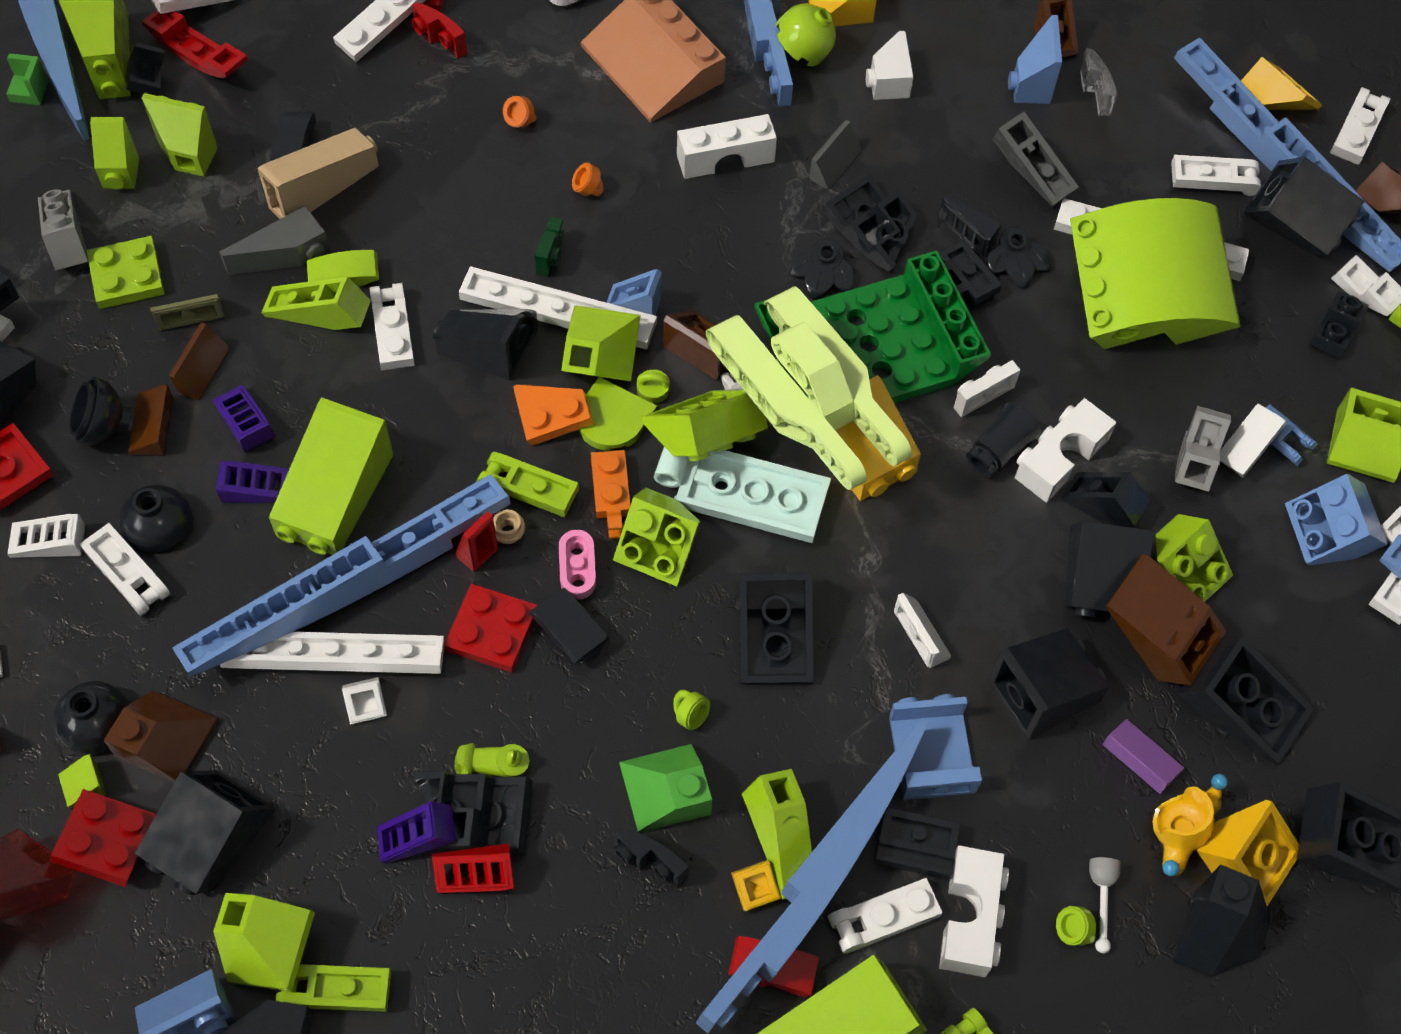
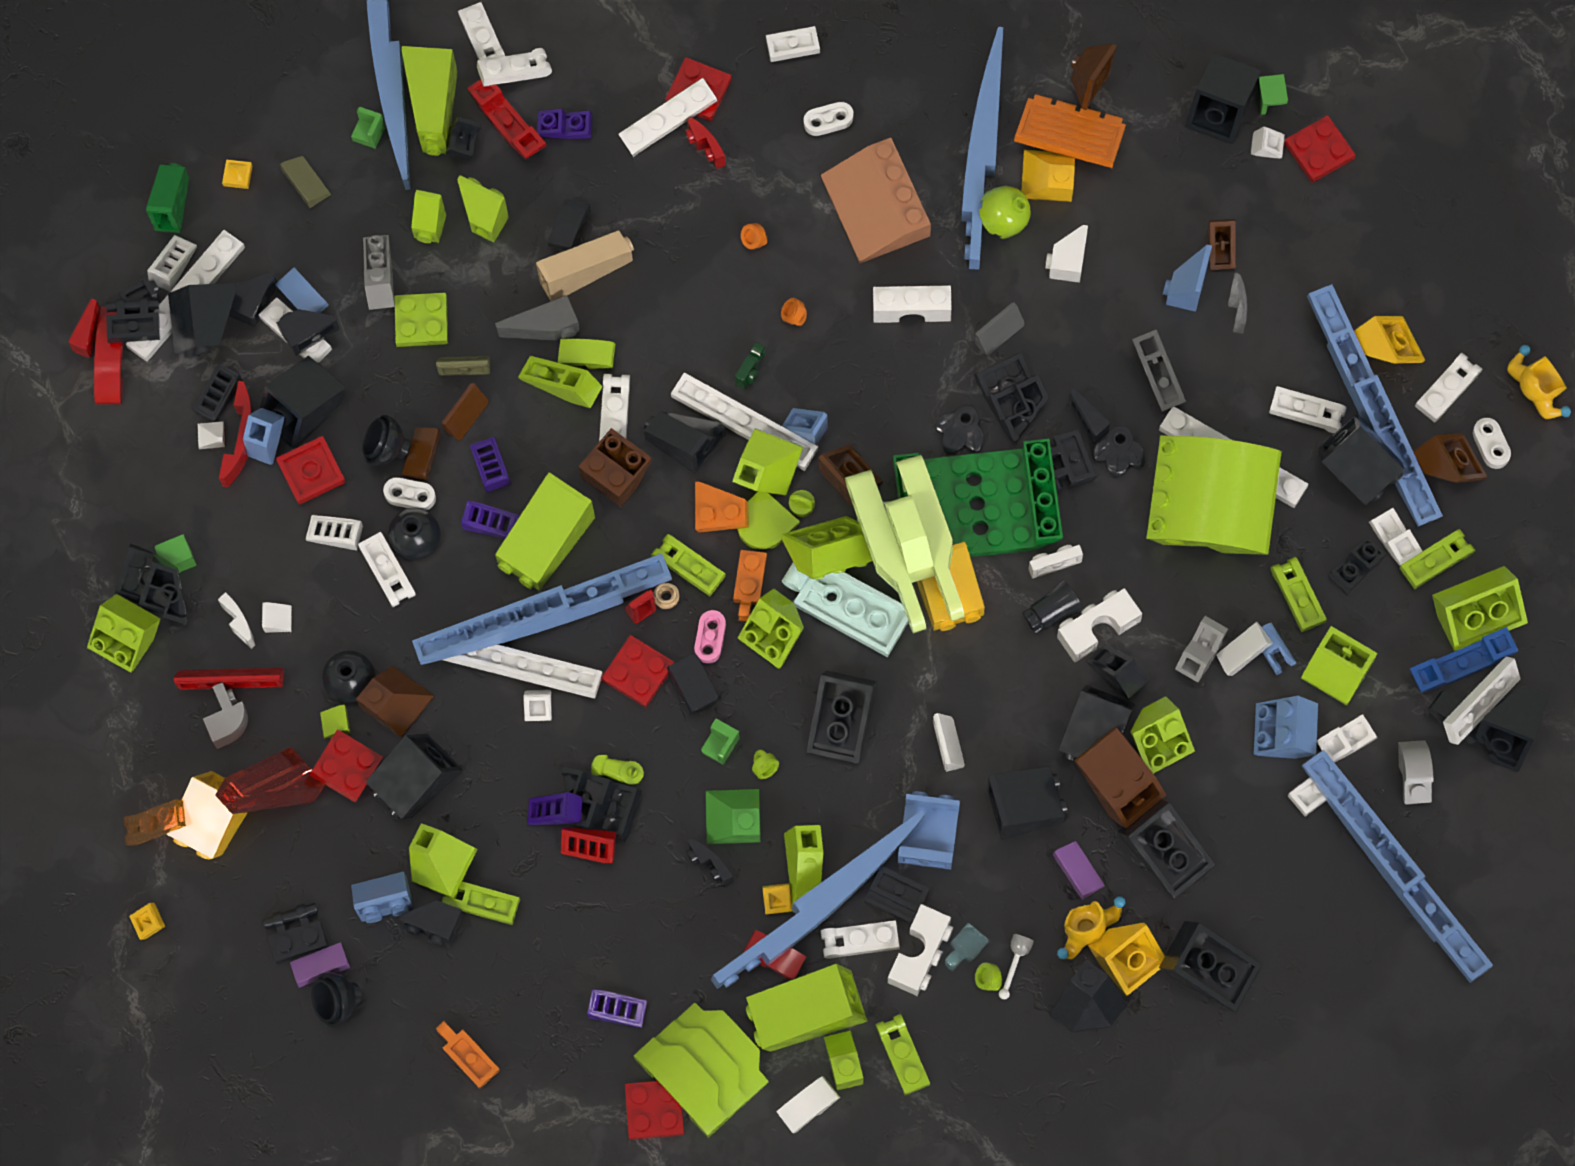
camera: 20 degrees right, 10 degrees up
(143, 470) = (410, 494): none -> white plate
(268, 43) = (564, 125): none -> dark purple slope
(406, 387) = (615, 467): none -> reddish brown slope
(624, 692) = (720, 742): none -> bright green panel
(1032, 890) = (966, 944): none -> clear light blue plate
(1287, 368) = (1299, 595): none -> lime plate

